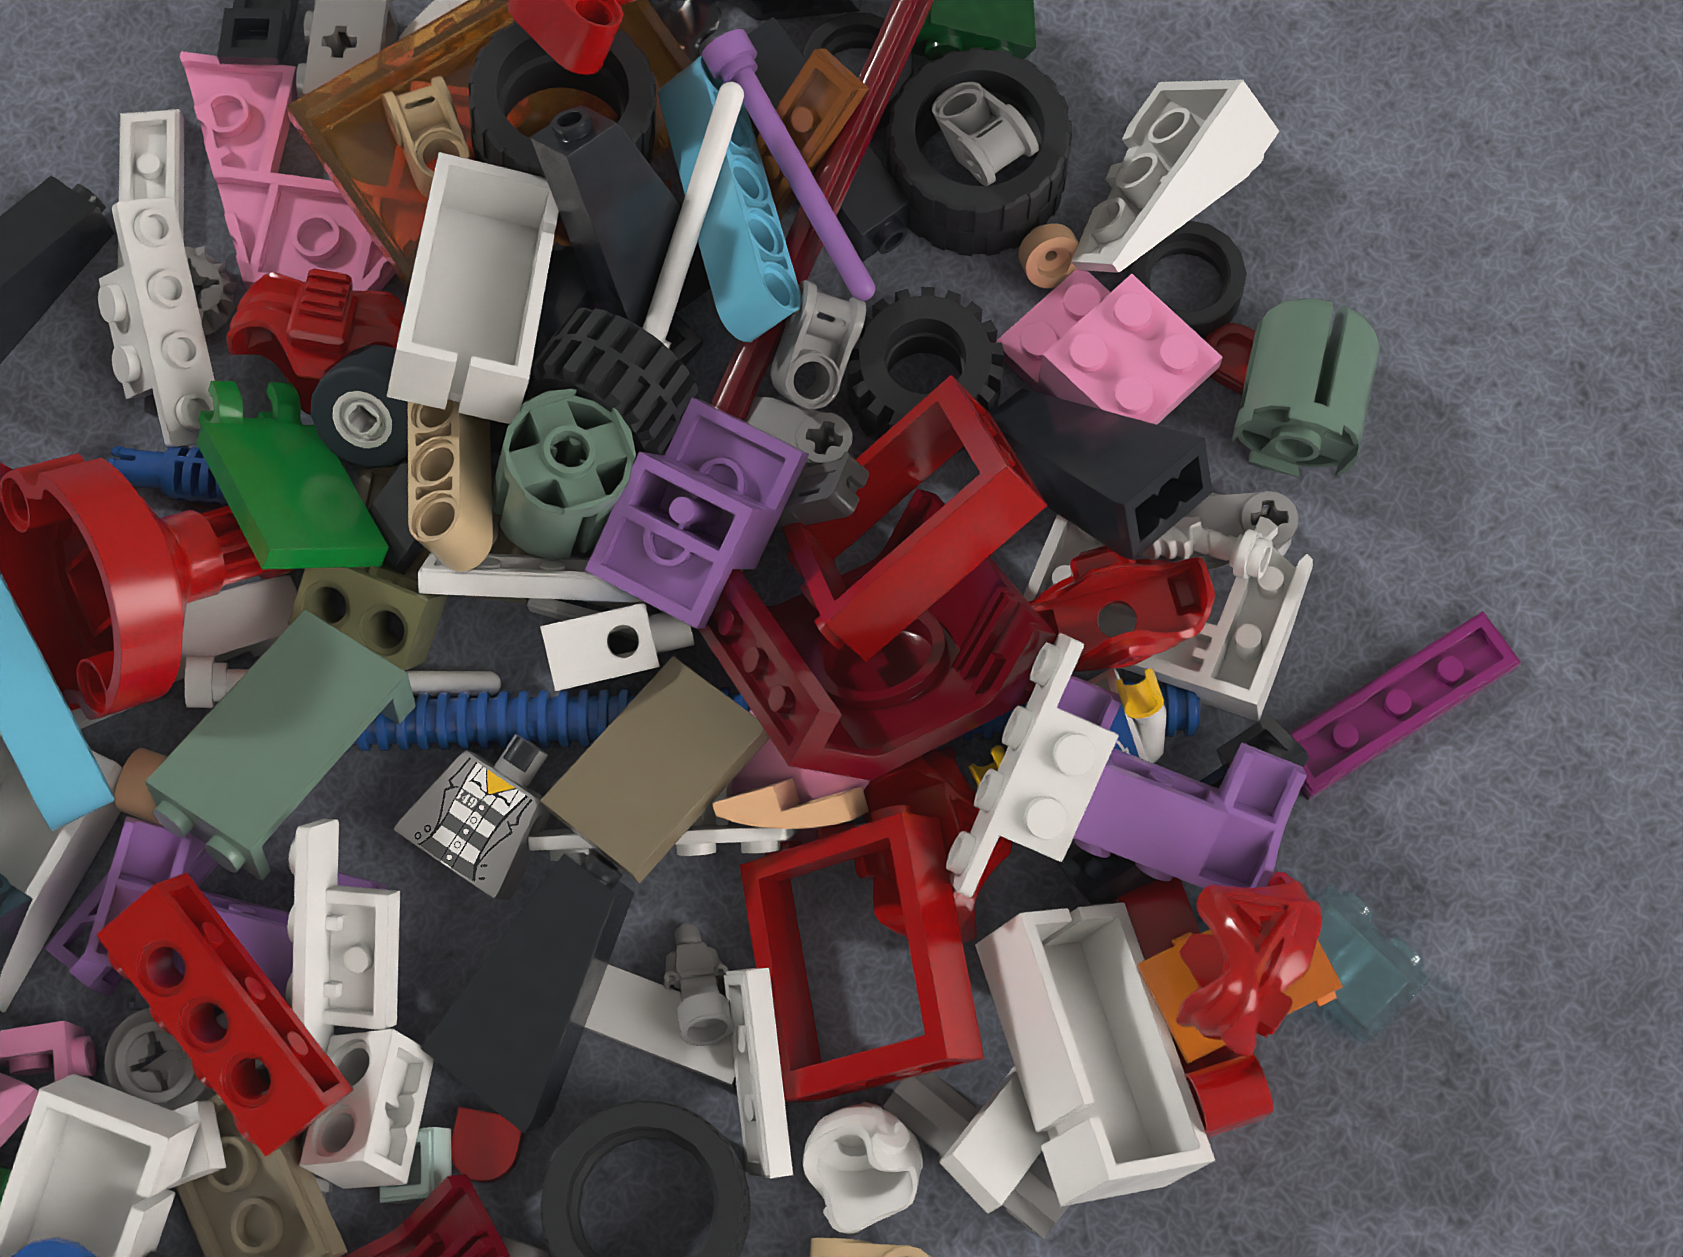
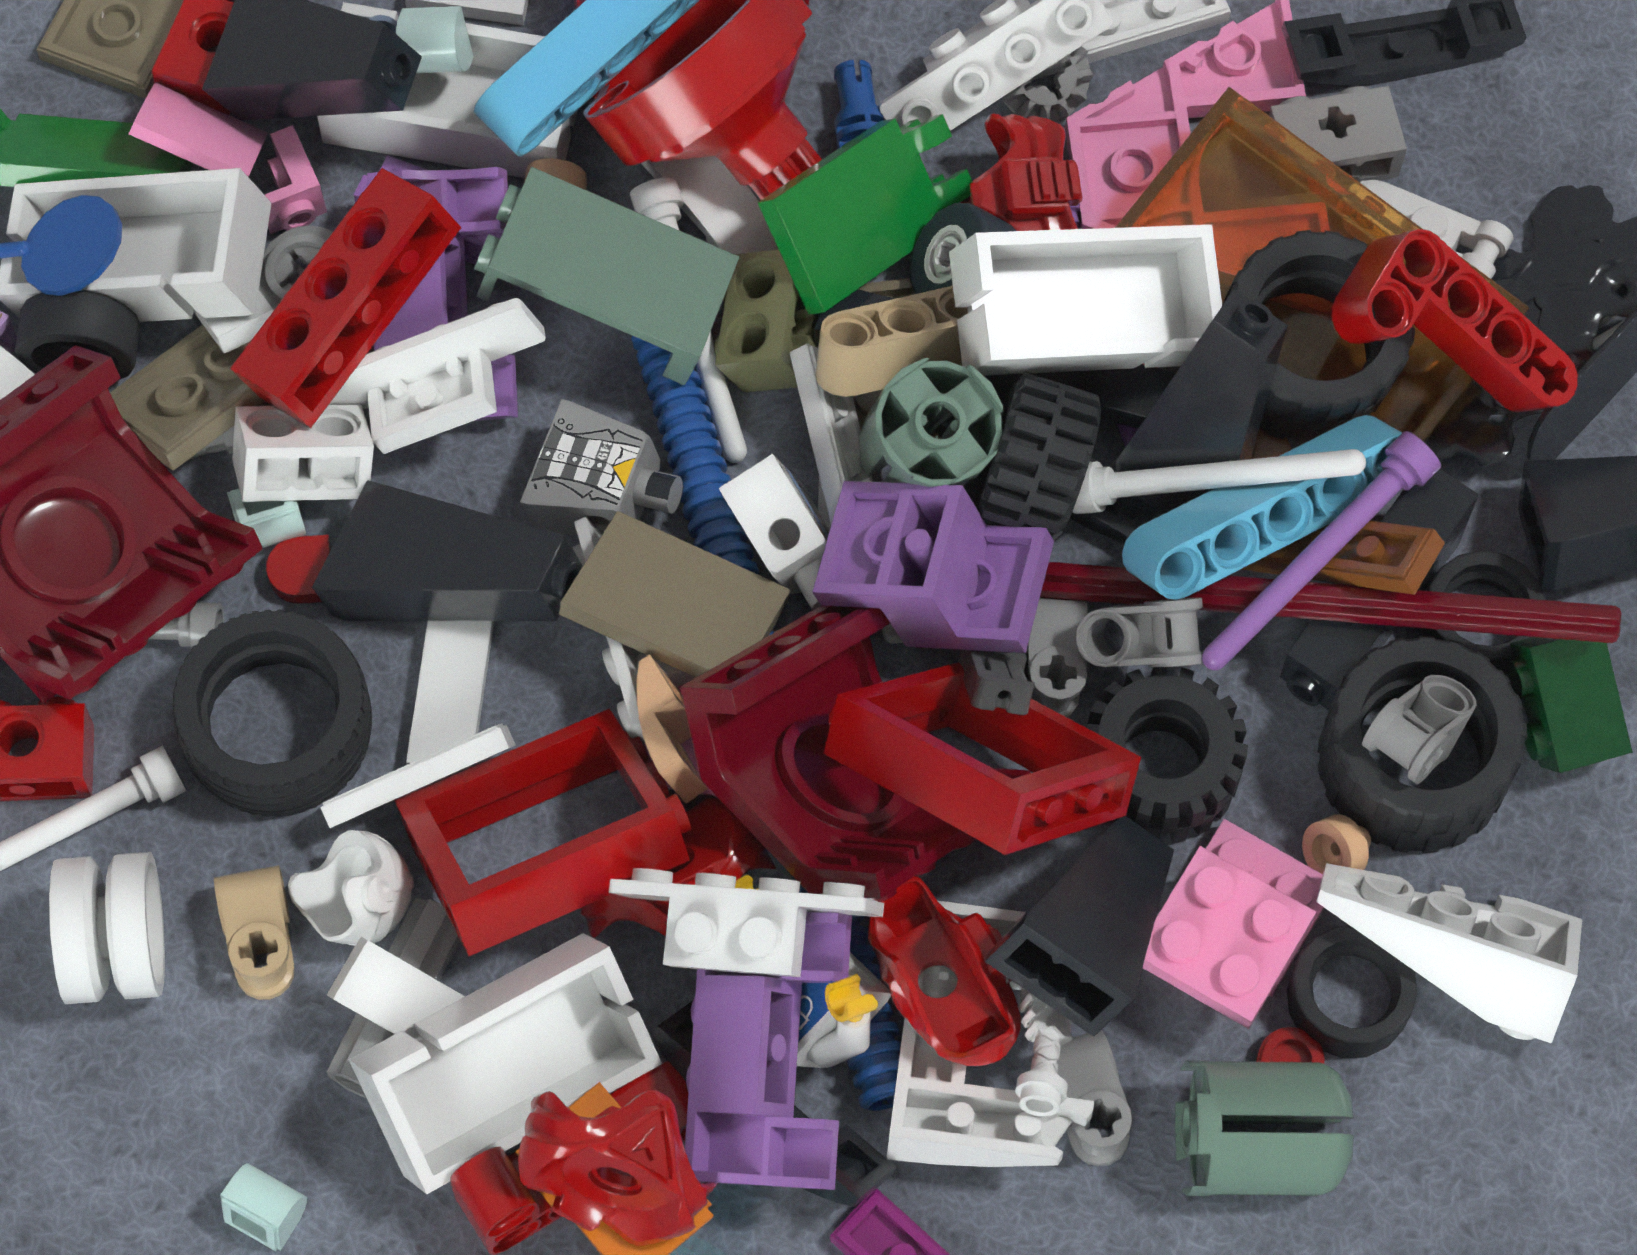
camera: 70 degrees right, 5 degrees down
(424, 126) = (1257, 217): tan piece -> none
(695, 970) = (501, 700): light grey piece -> none

